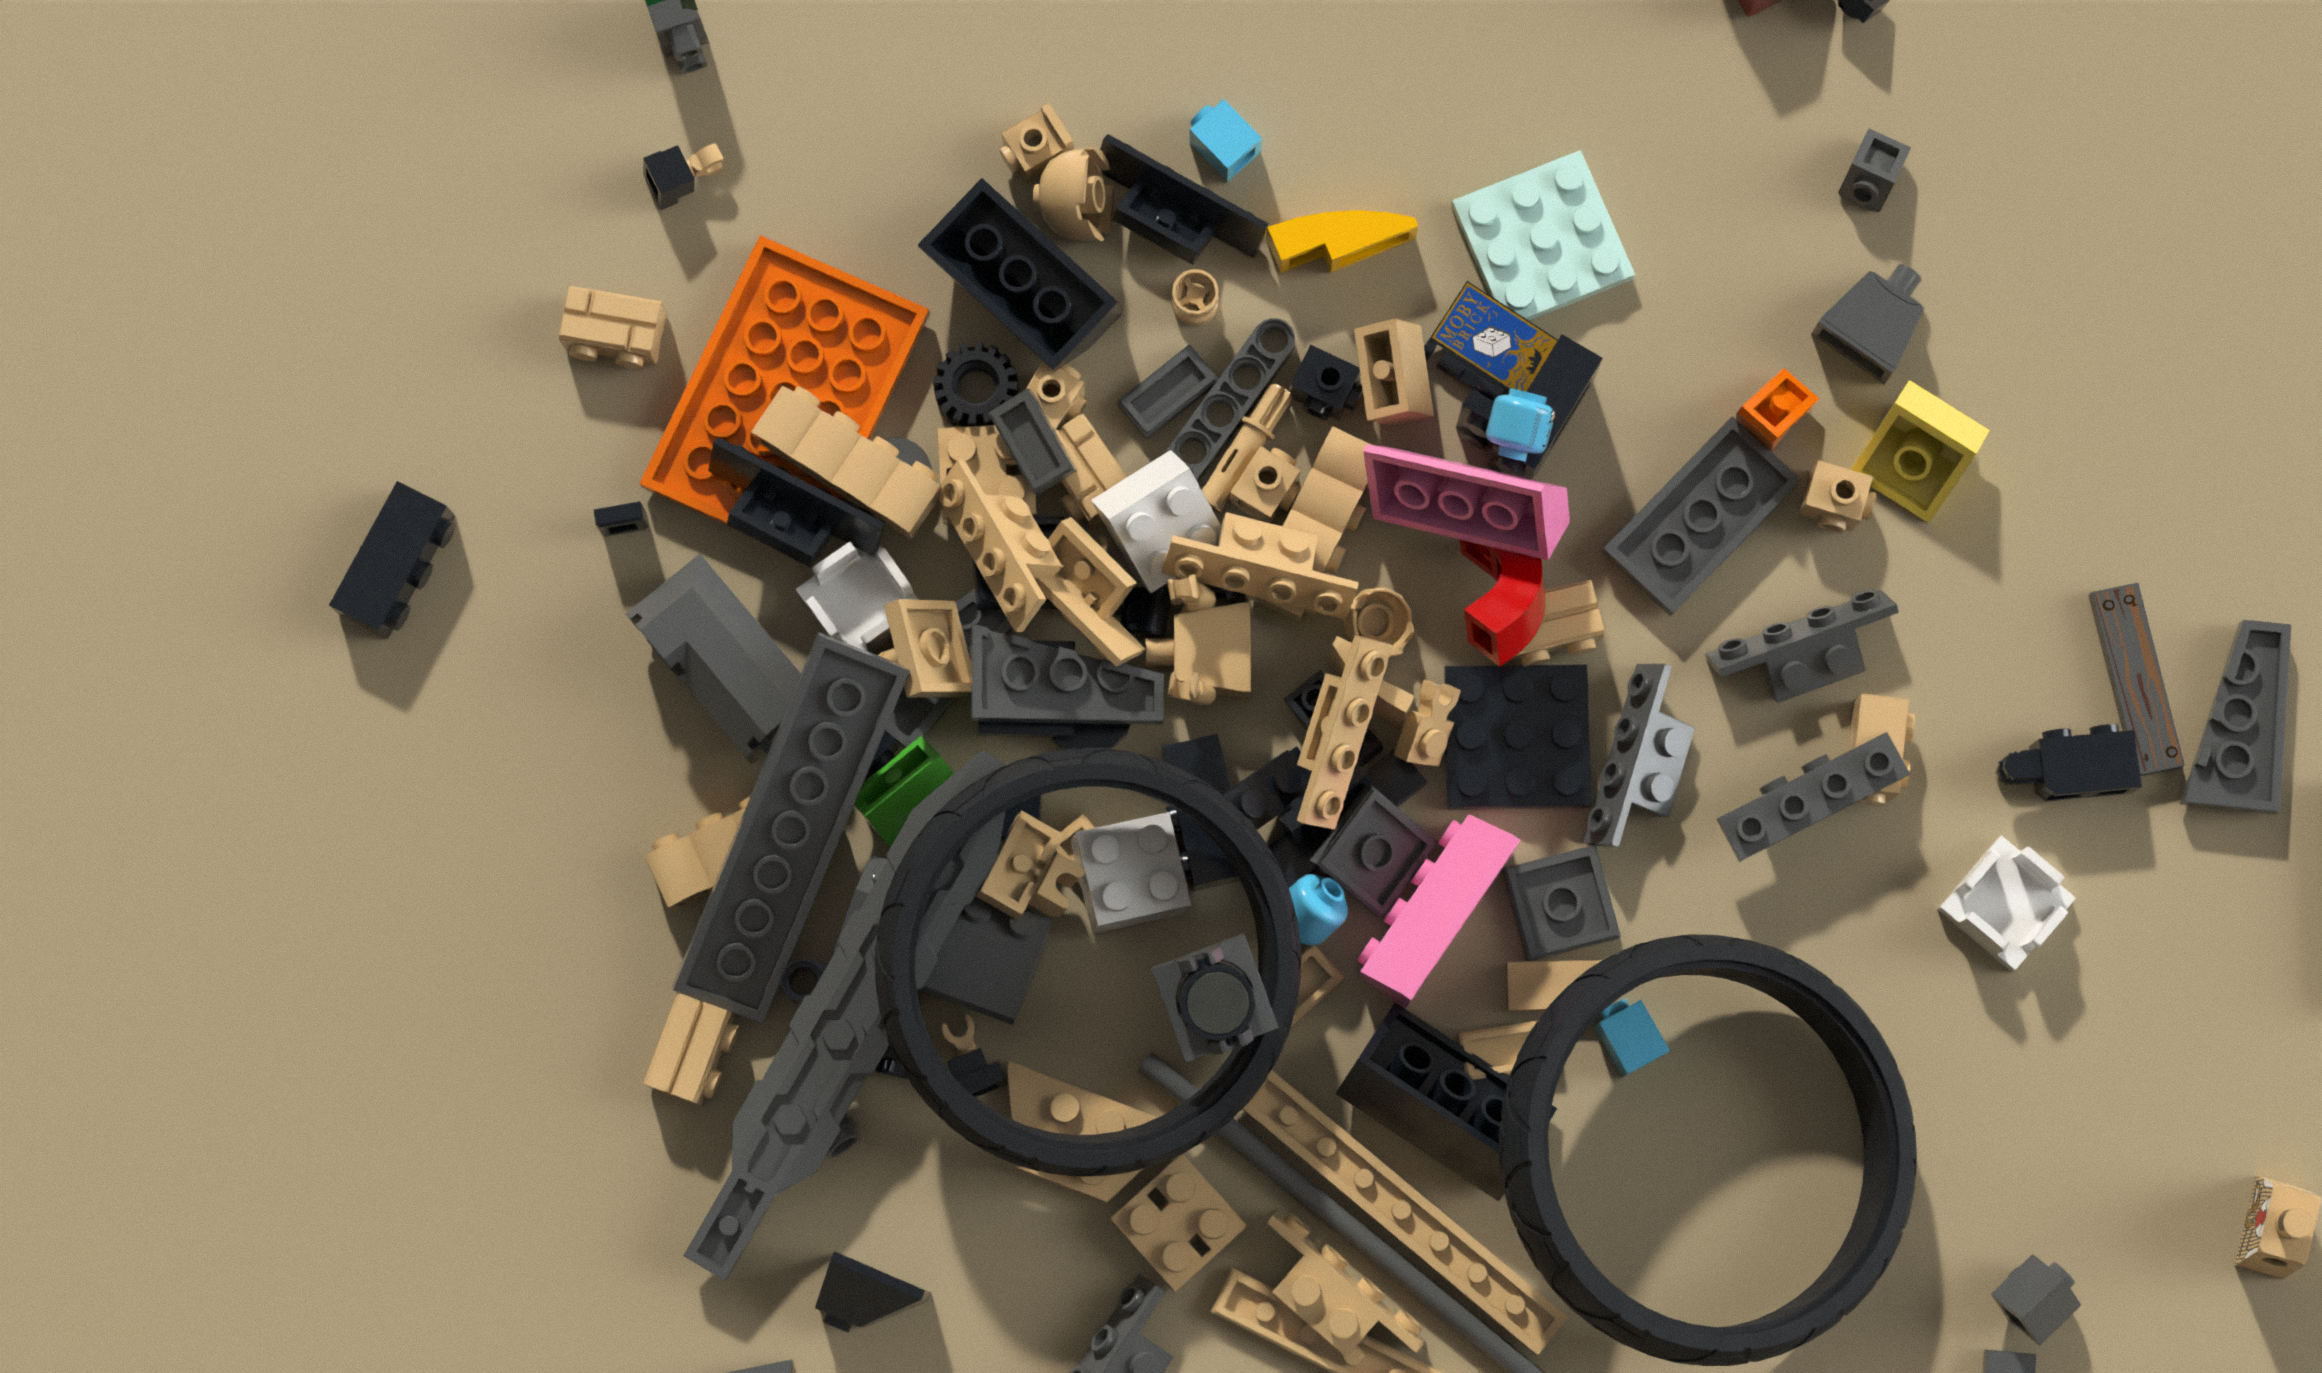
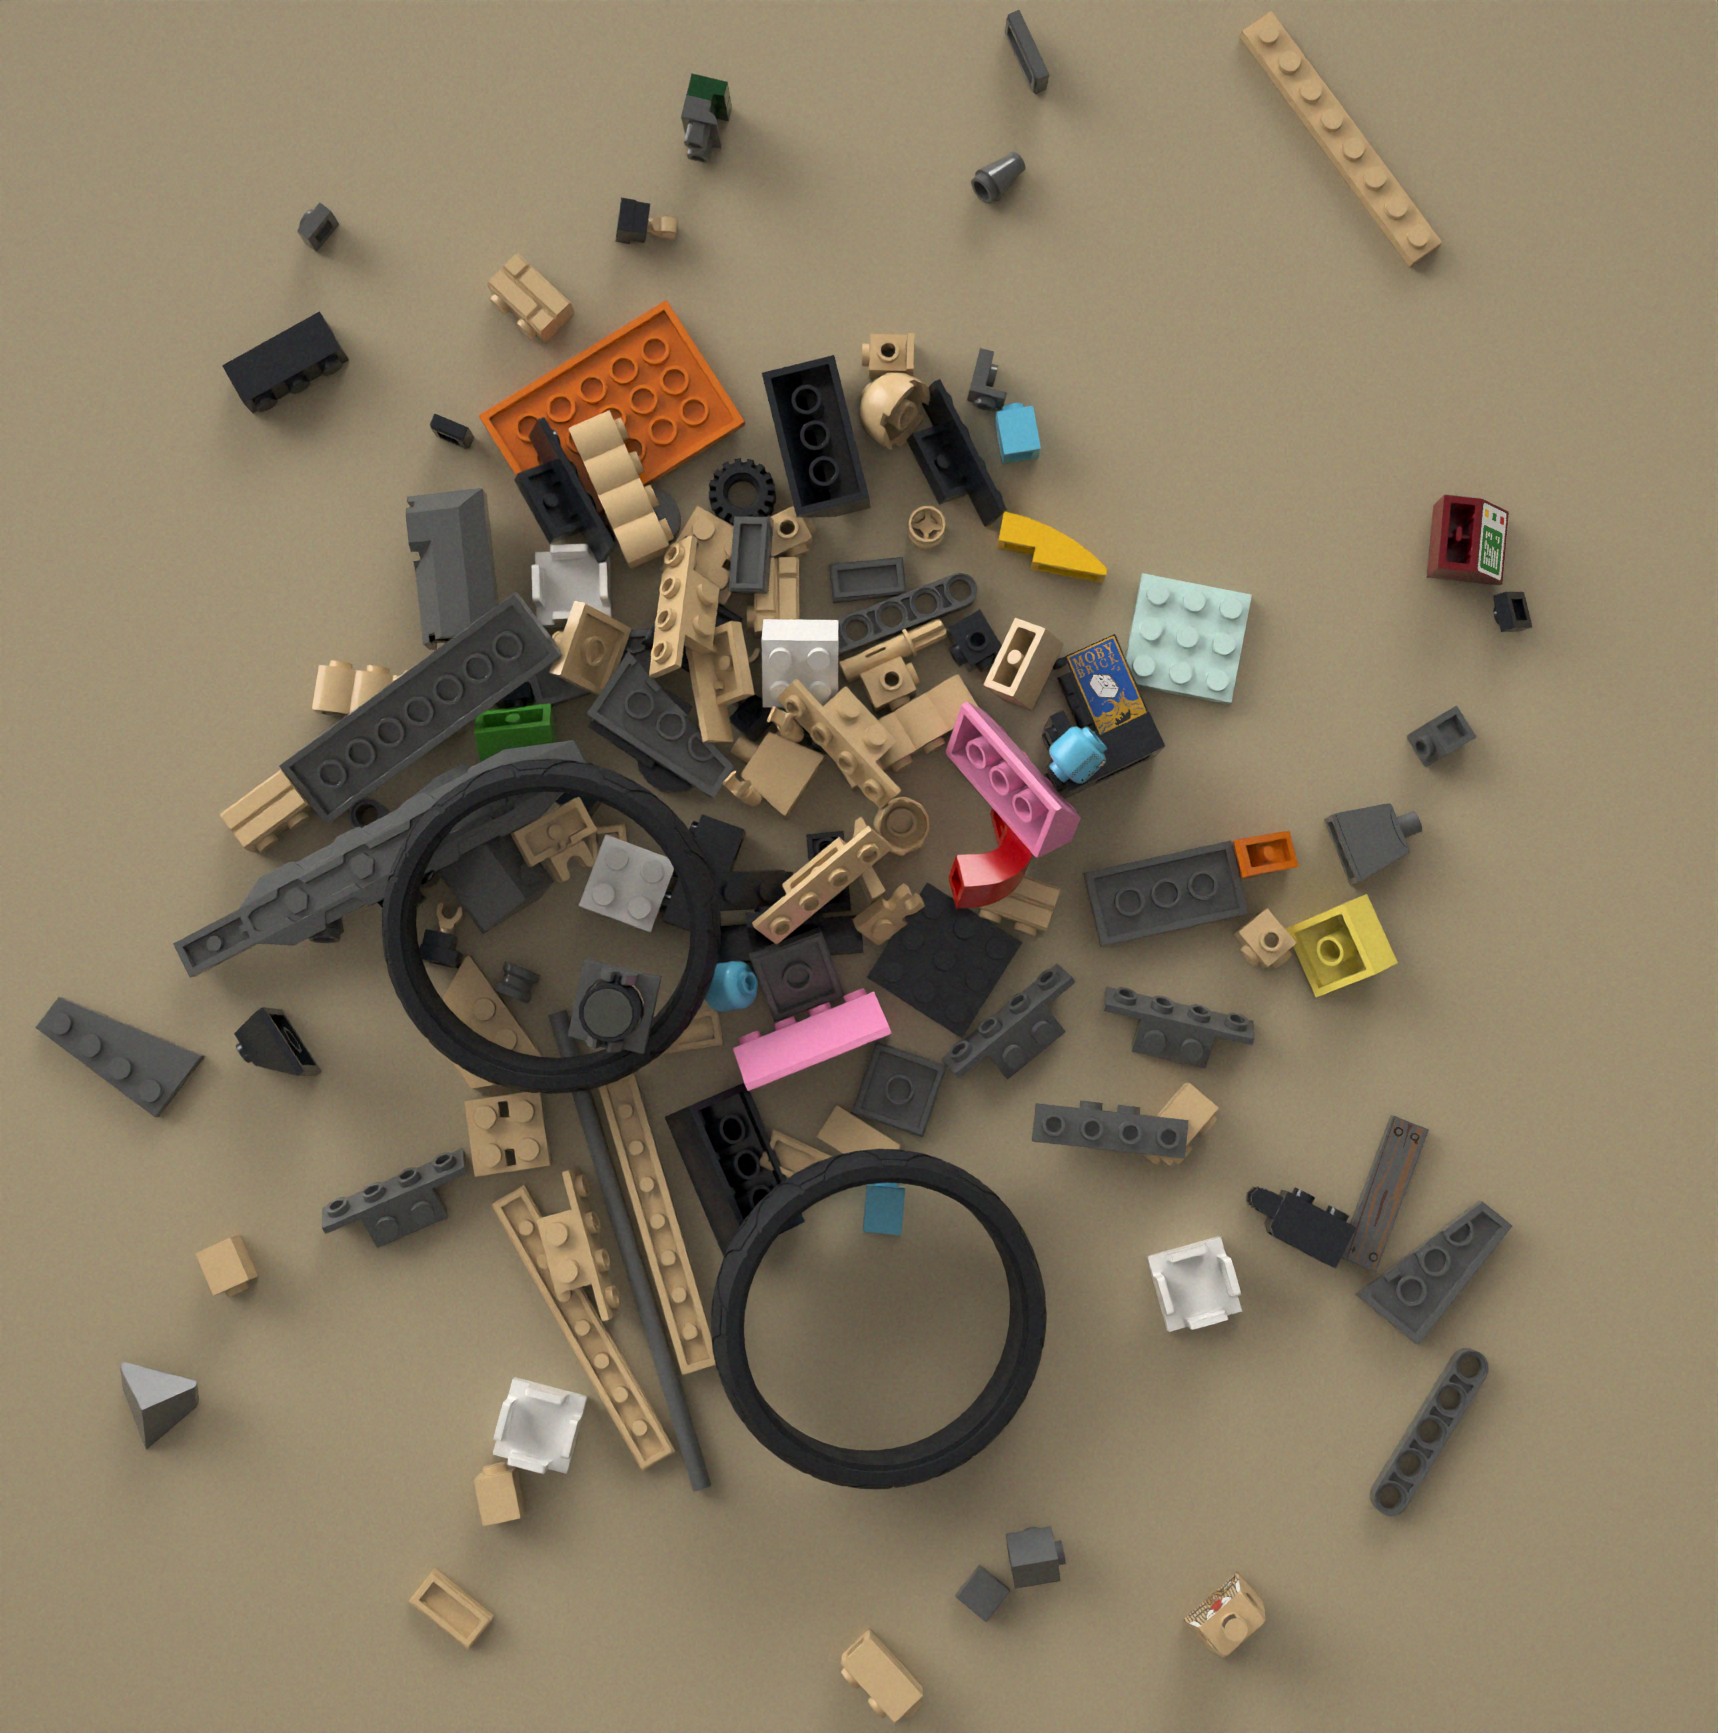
camera: 30 degrees right, 5 degrees up
(330, 395) = (317, 226): none -> dark grey plate
(1081, 1055) = (517, 982): none -> dark grey wheel
(1148, 103) = (983, 376): none -> dark grey bracket

